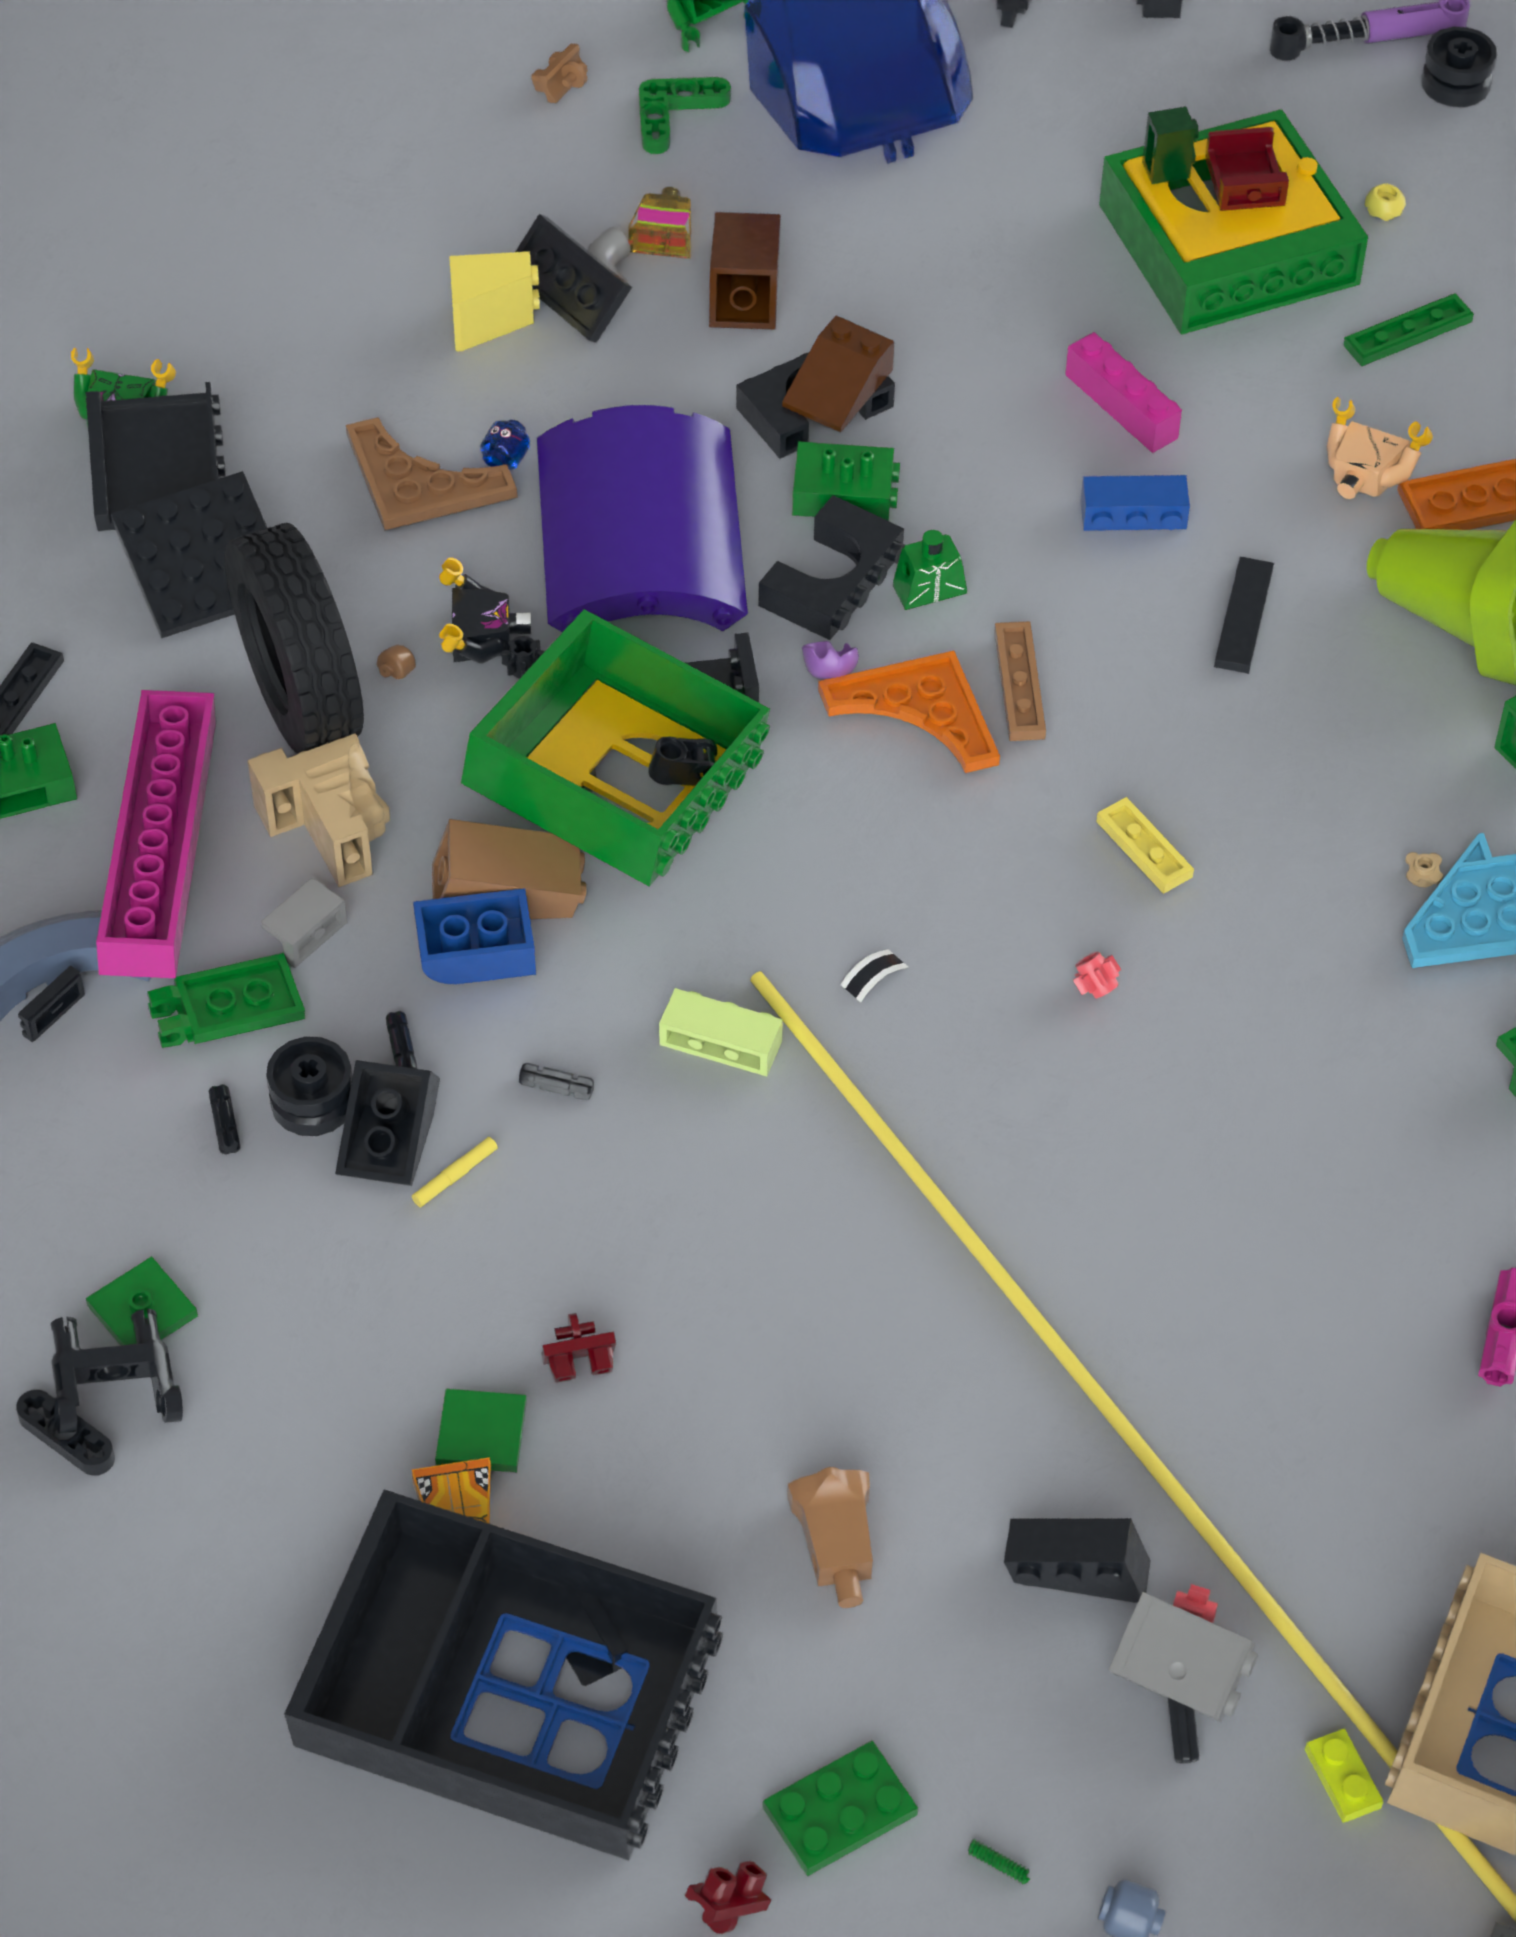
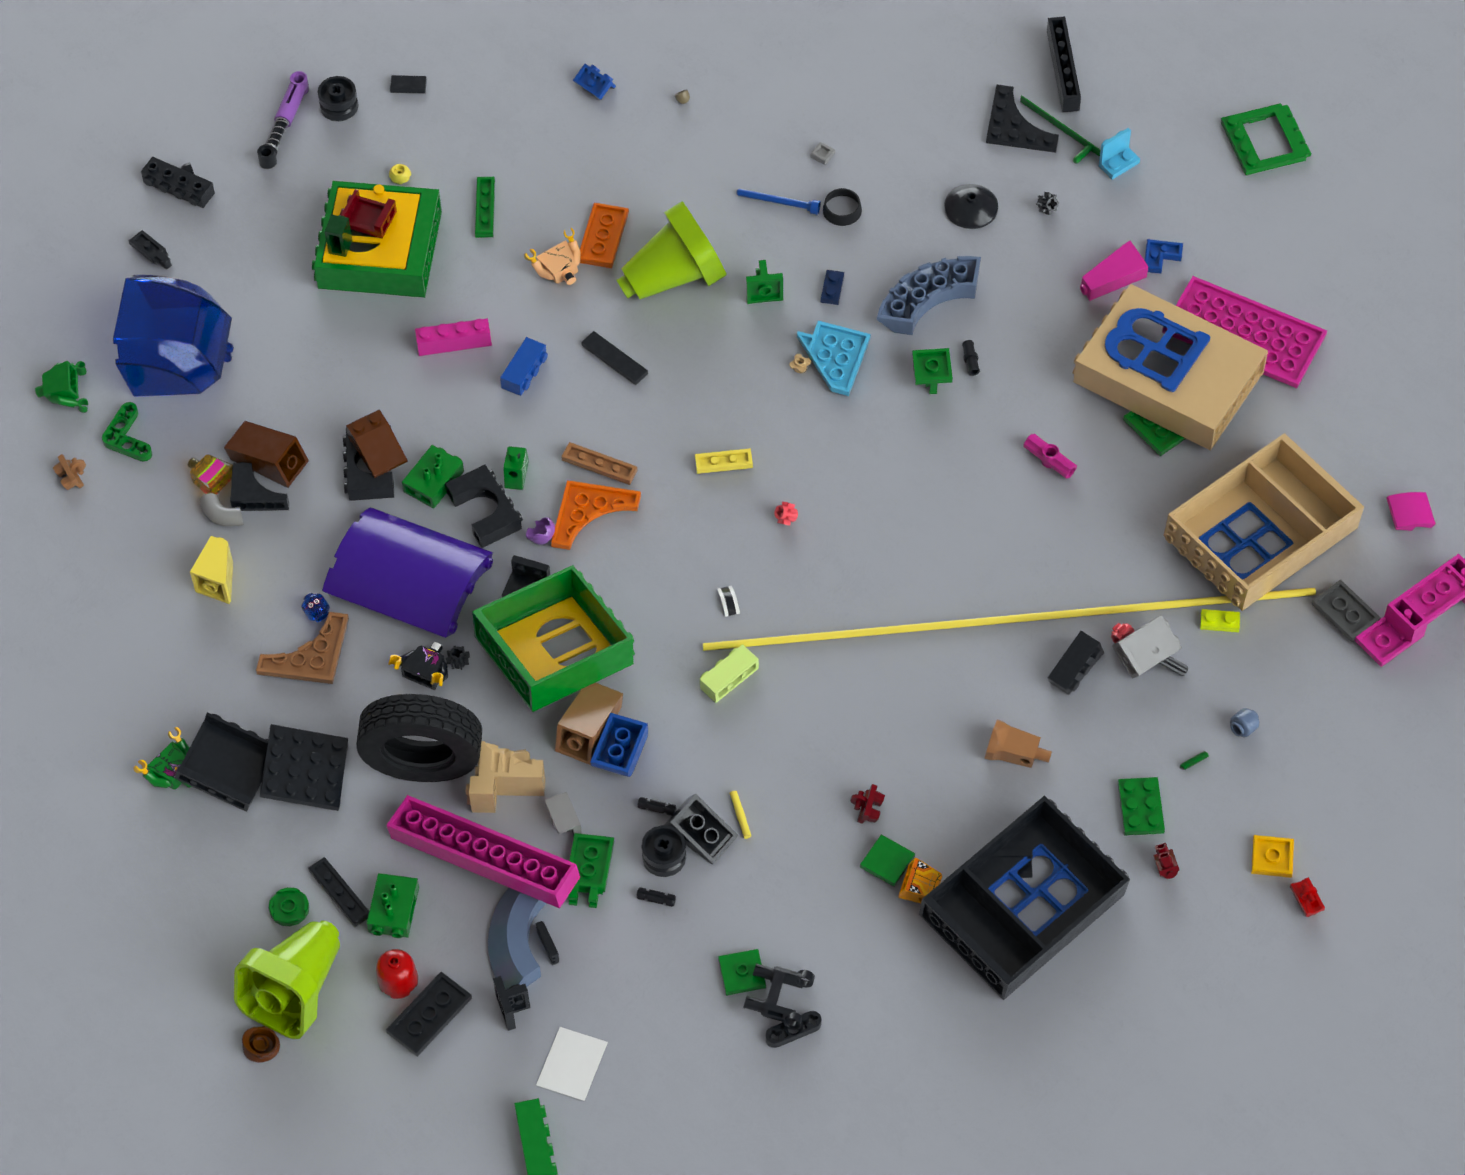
camera: 60 degrees left, 5 degrees up
(556, 1081) = (714, 752): axle -> none
(573, 279) = (237, 526): black plate -> none
(662, 279) = (250, 494): none -> black arch
(681, 760) = (571, 617): black piece -> none

